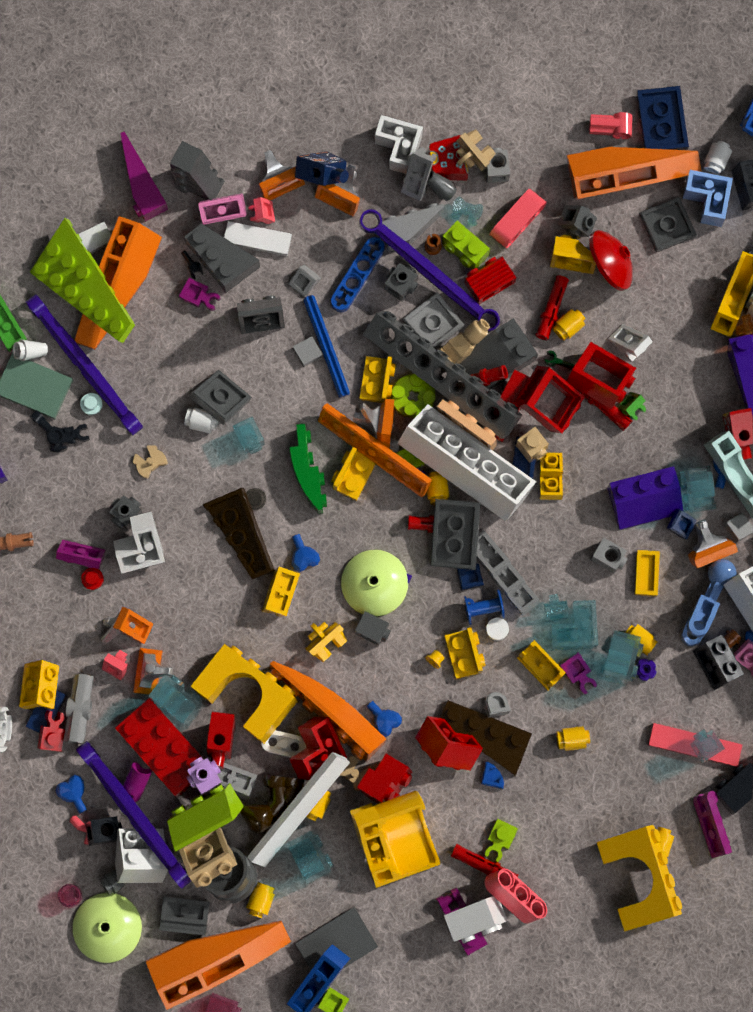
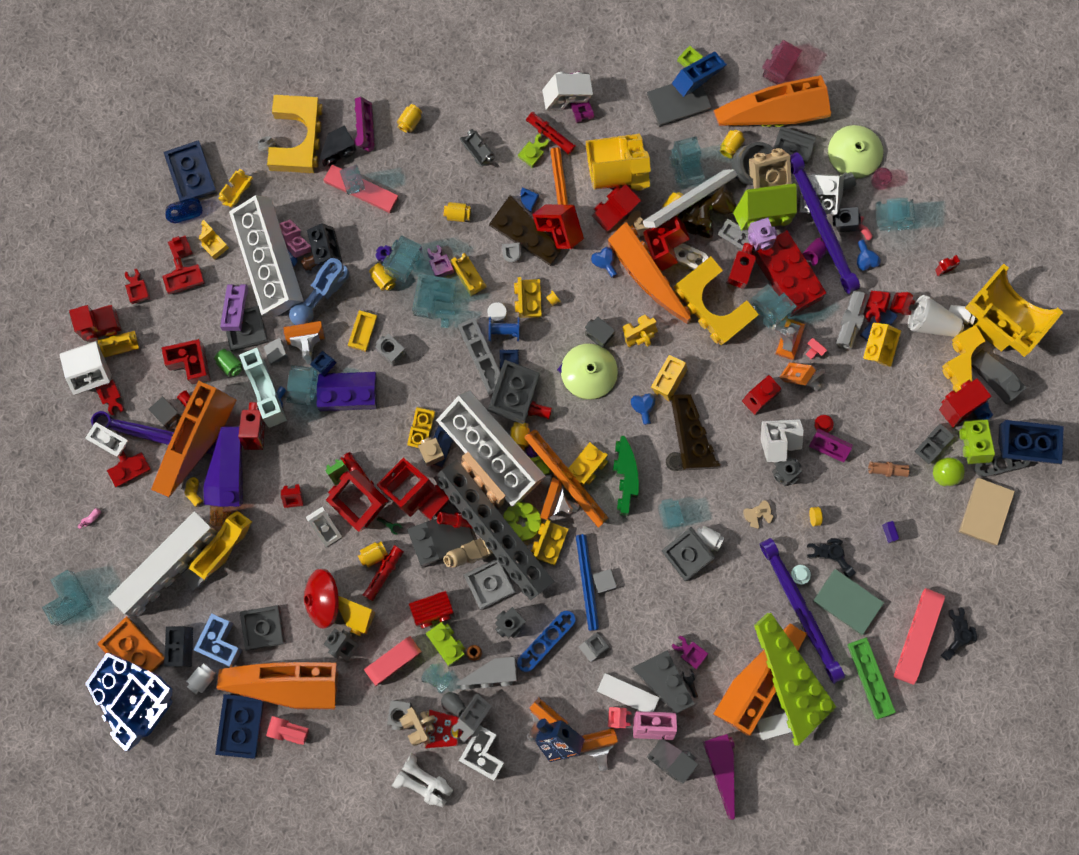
camera: 170 degrees left, 0 degrees up
(23, 742) = (902, 302): none -> red tile
(27, 350) = (848, 632): white cone -> none
(47, 848) = (895, 213): none -> clear light blue brick
(84, 470) = (816, 516): none -> yellow tile
(168, 596) = (762, 394): none -> red torso
(260, 314) = (640, 619): dark grey slope -> none
(427, 269) = (483, 626): dark purple piece -> none
(440, 98) = (439, 783): none -> white piece
(460, 807) = (559, 176): none -> orange axle
(515, 896) = (532, 101): coral beam -> none
(572, 825) = (481, 154): none -> dark grey hinge
(662, 900) = (422, 113): yellow arch -> none
(673, 366) = (291, 497): none -> red tile

